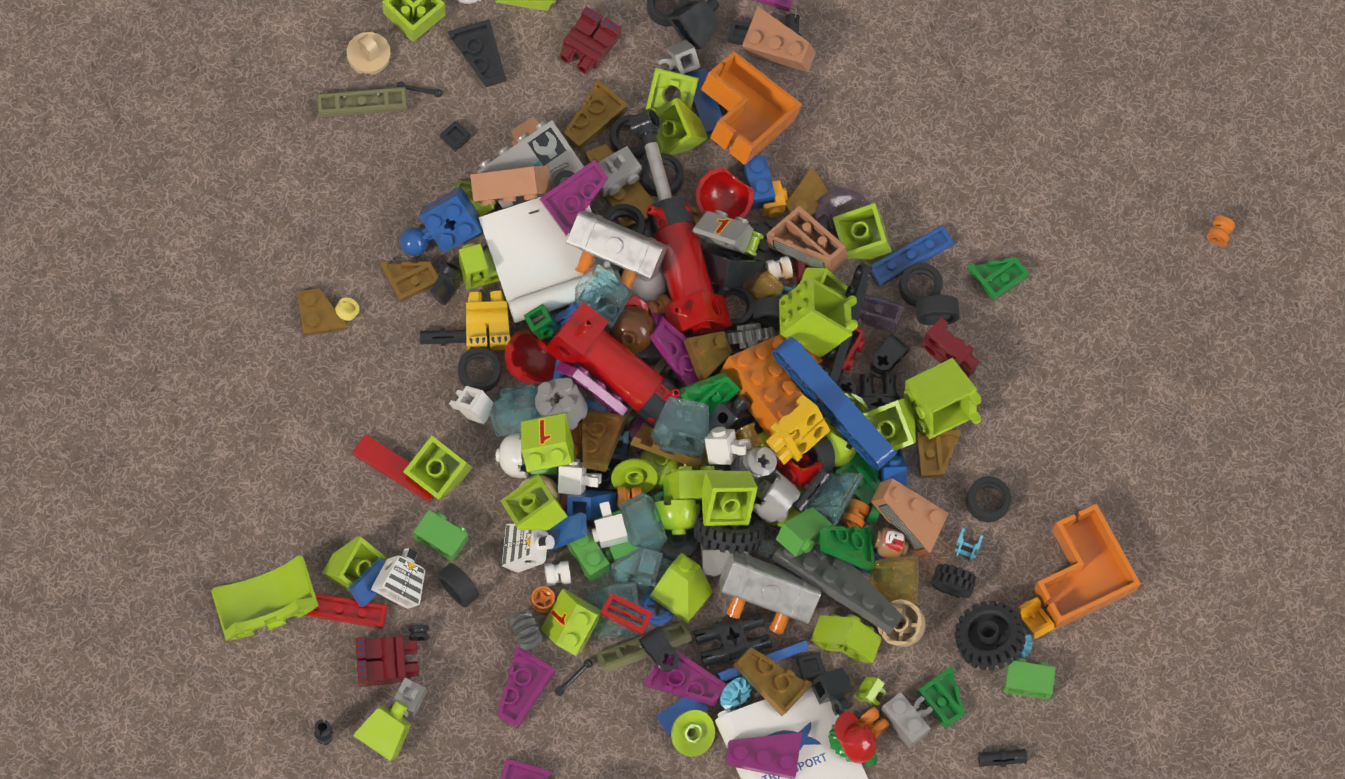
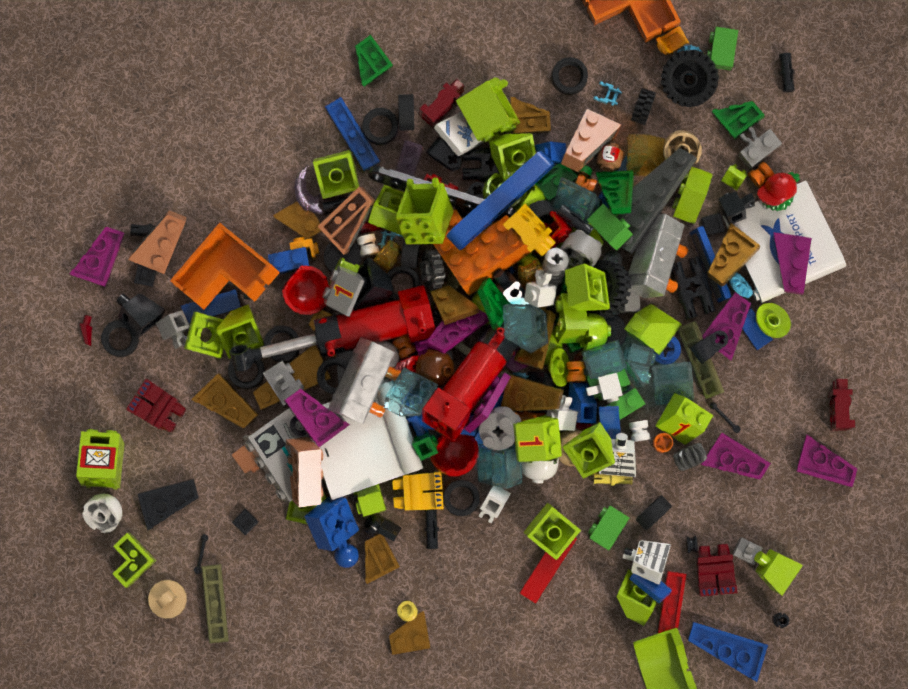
camera: 80 degrees left, 15 degrees up
(288, 682) = (736, 651): none -> blue wing
(498, 541) = (611, 479): none -> light yellow pin
(640, 630) = (688, 358): red tile -> none
(910, 362) = (457, 134): none -> white tile

